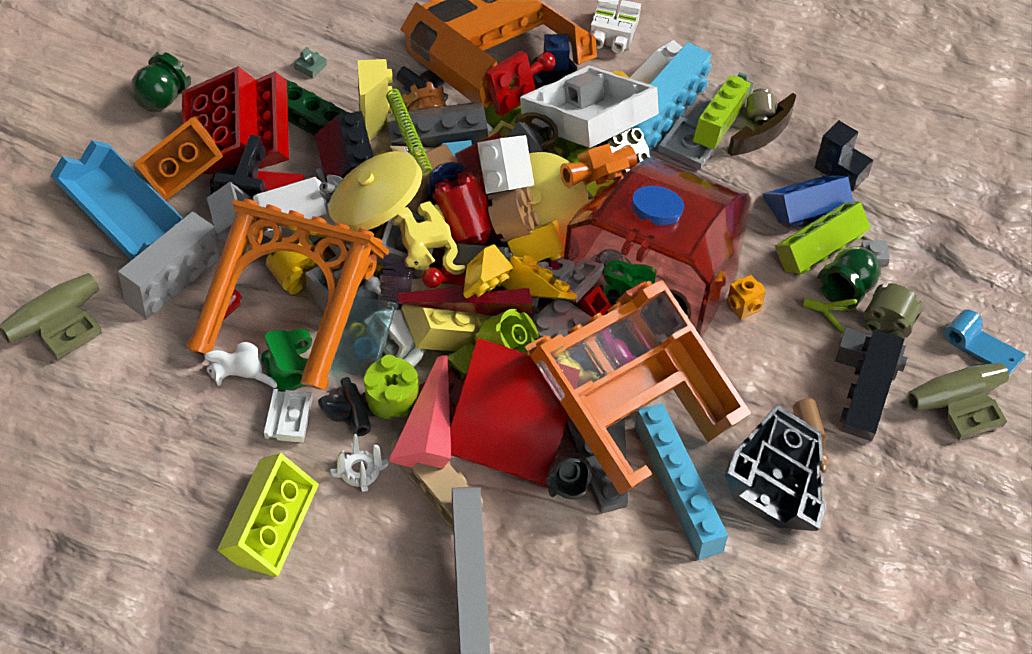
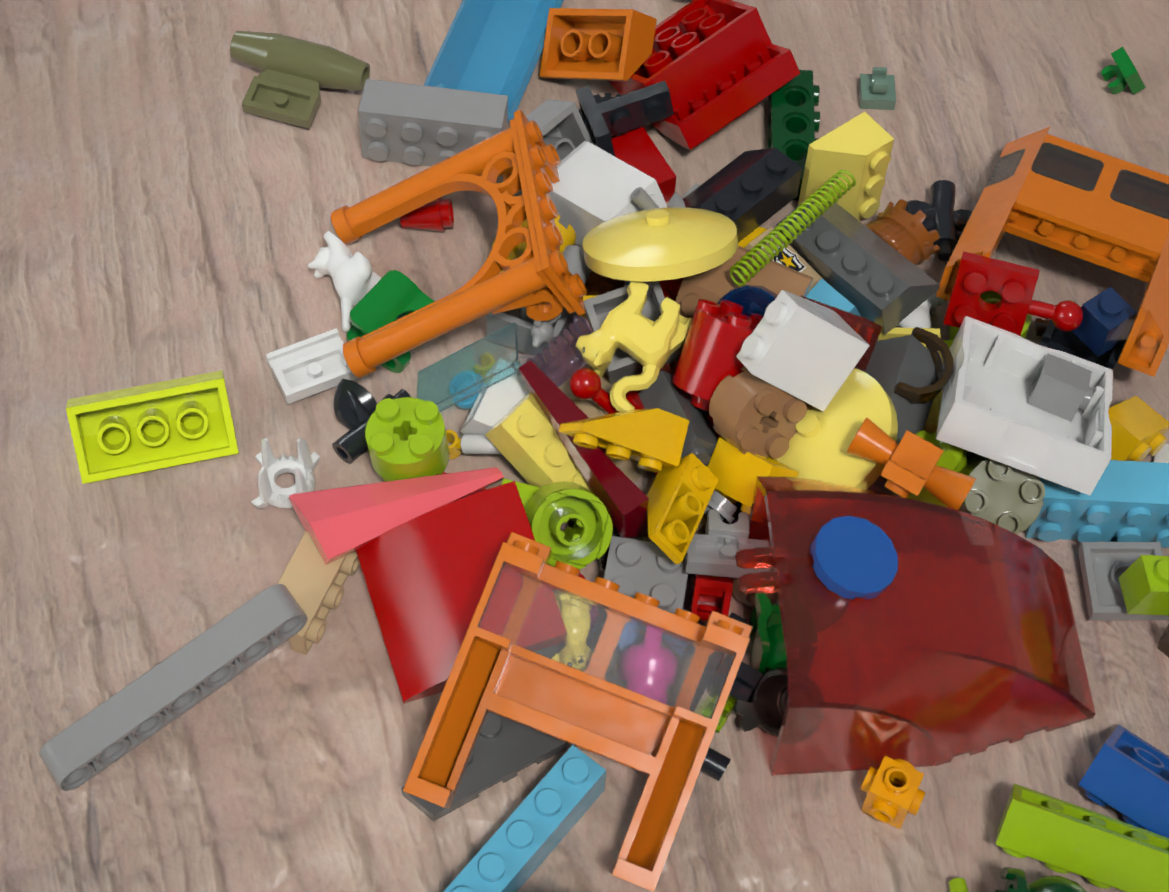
camera: 60 degrees right, 5 degrees up
(569, 475) = (405, 714): pearl dark grey hat -> none

